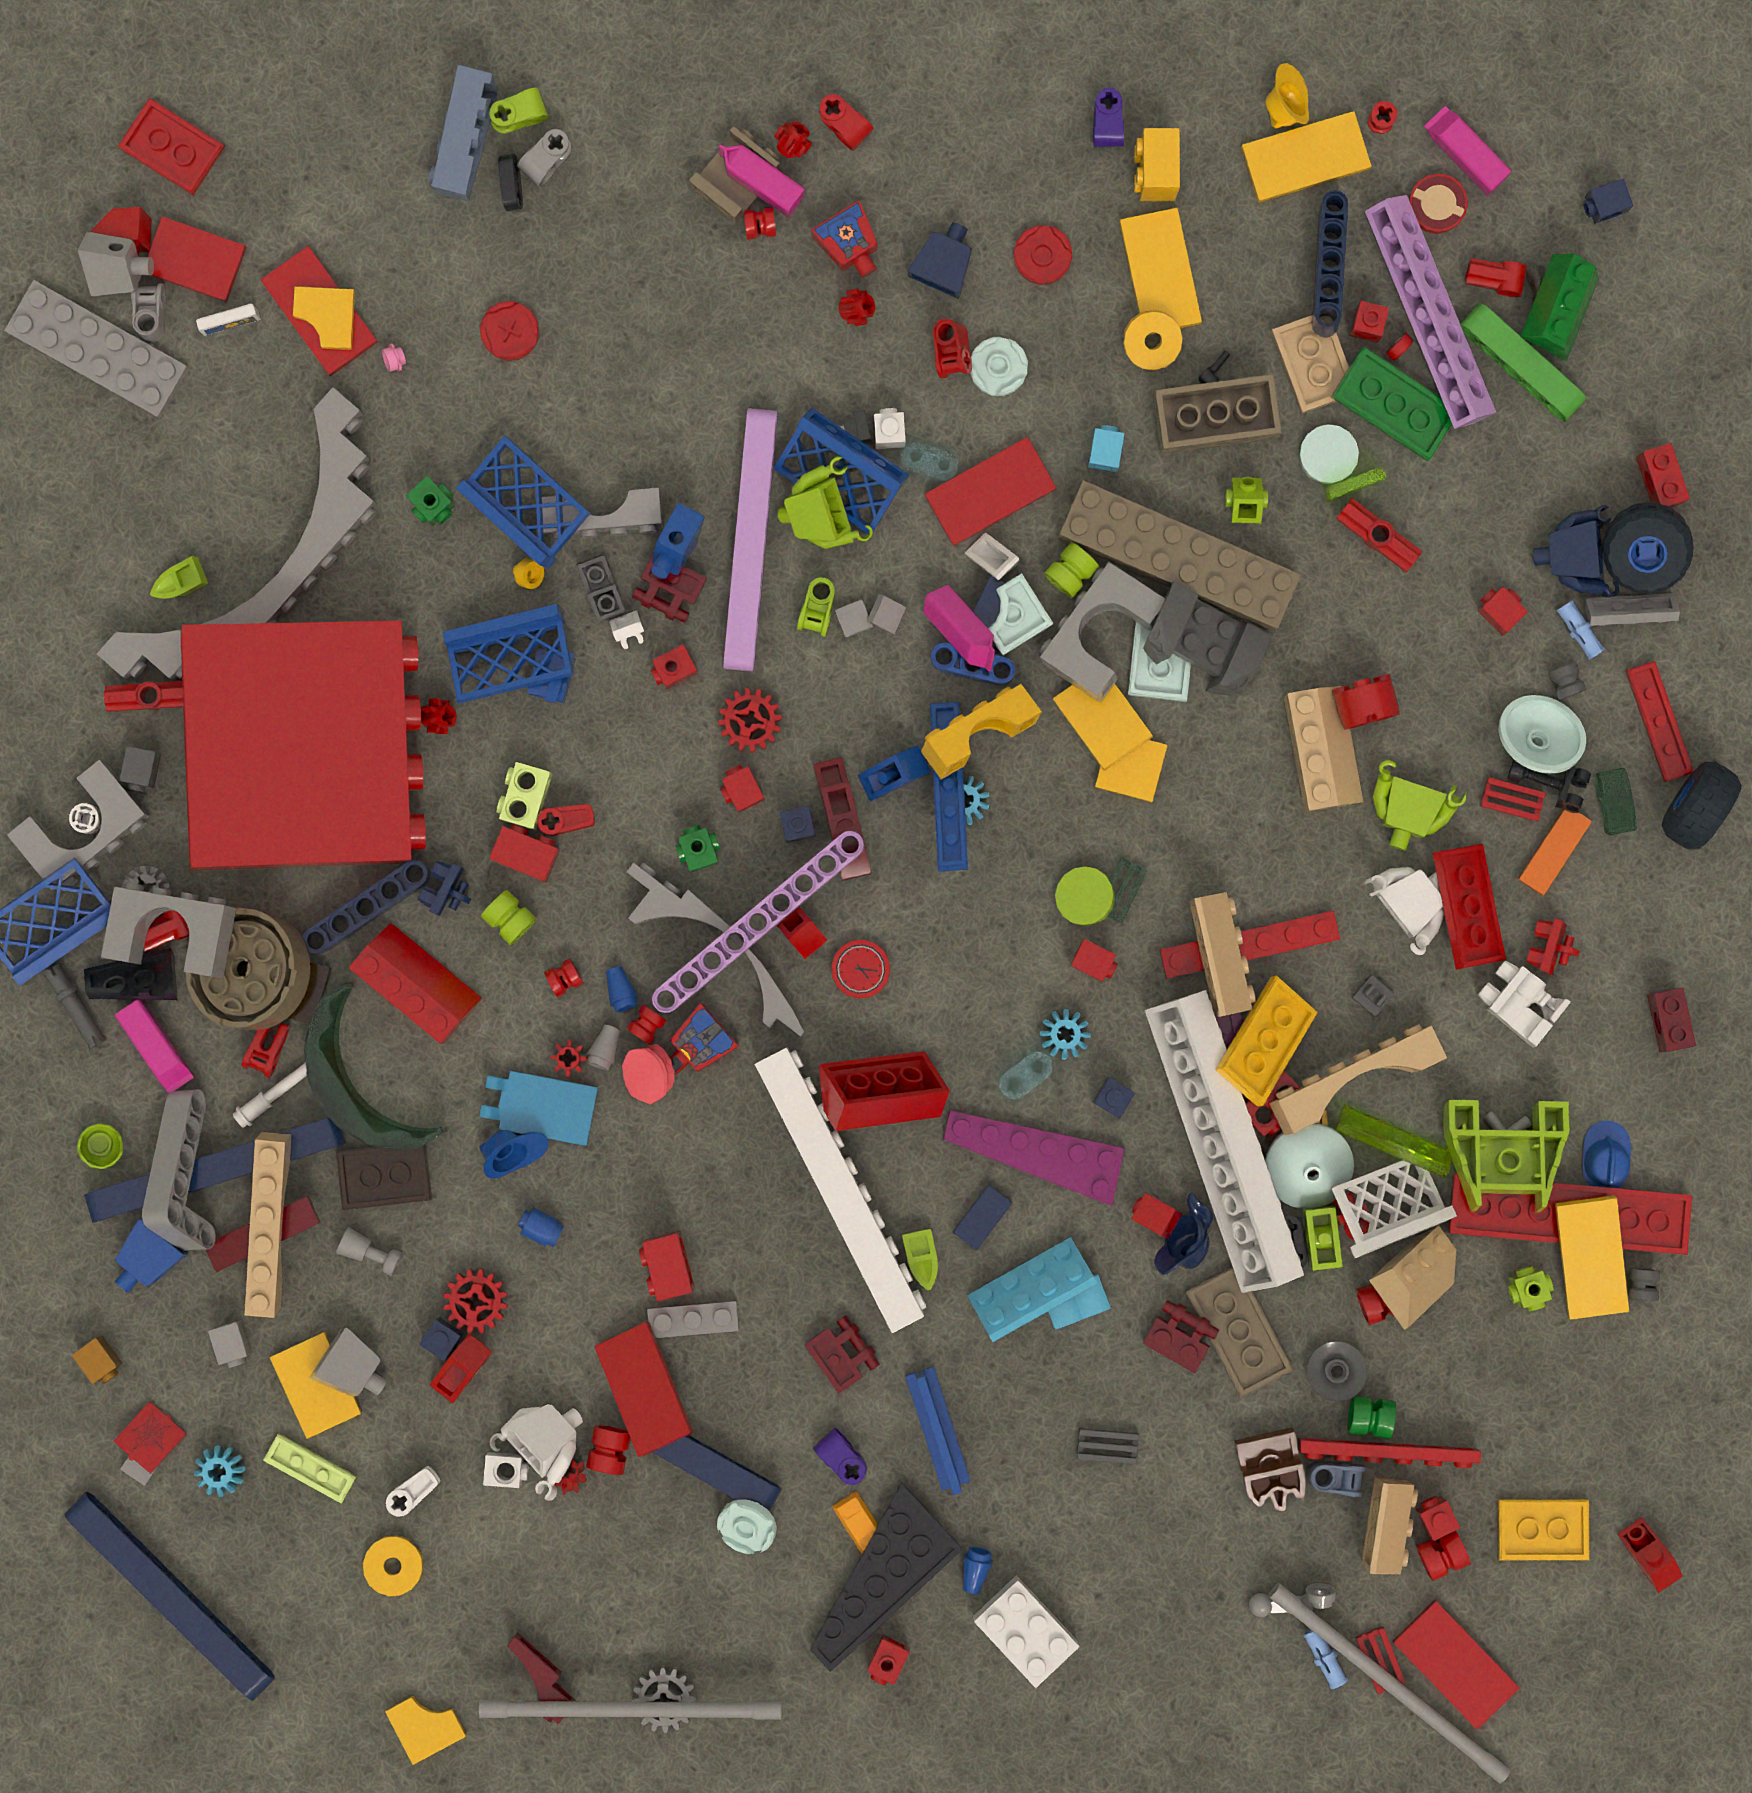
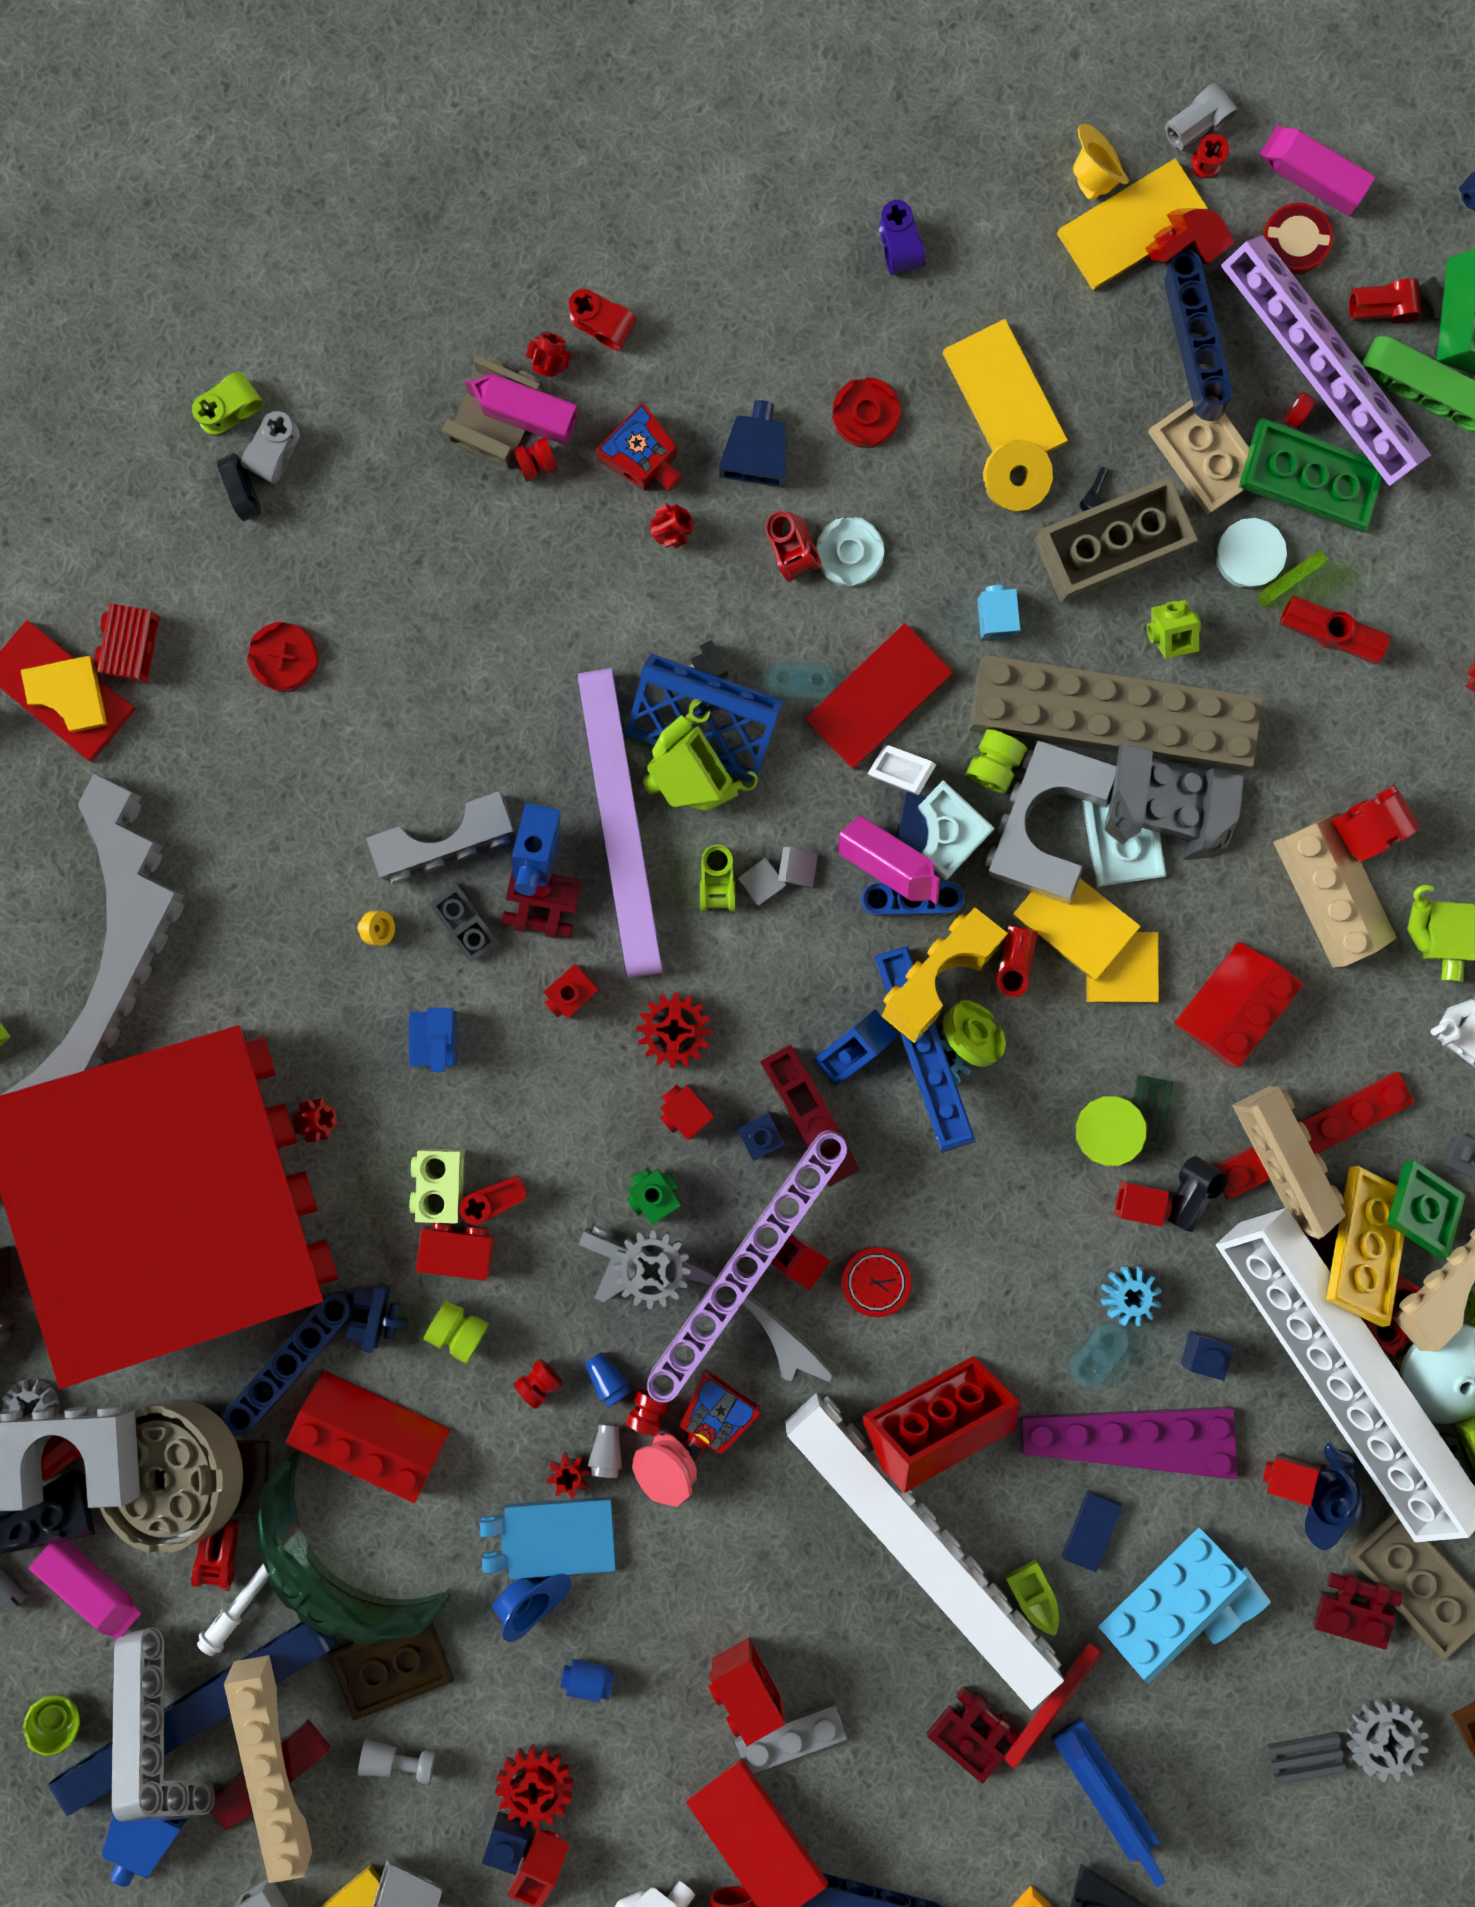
camera: 15 degrees left, 0 degrees up
(385, 287) = (127, 643): none -> red brick
(393, 358) = (157, 722): bright pink plate -> none
(426, 492) = (230, 874): green brick -> none
(463, 133) = (169, 442): sand blue wedge -> none
(506, 520) = (328, 871): blue fence -> none
(508, 629) = (368, 999): blue fence -> none
(627, 626) = (504, 960): white tile -> none
(693, 898) = (640, 1279): none -> light grey gear
(837, 1452) = (1001, 1854): dark purple piece -> none
(889, 429) = (745, 654): white brick -> none
(914, 1346) = (1054, 1705): none -> red tile
(993, 786) = (973, 1033): none -> lime tile
(1045, 733) = (1016, 956): none -> red piece
(1144, 958) = (1198, 1186): none -> black piece
(1159, 164) = (973, 272): yellow brick -> none
(1190, 1447) = (1373, 1733): none -> light grey gear
(1216, 820) = (1238, 1004): none -> red slope
(1323, 1025) = (1426, 1209): none -> green plate
(1350, 175) = (1192, 230): none -> red brick
(1369, 321) = (1258, 390): red brick -> none
(1390, 80) = (1208, 112): none -> light grey piece

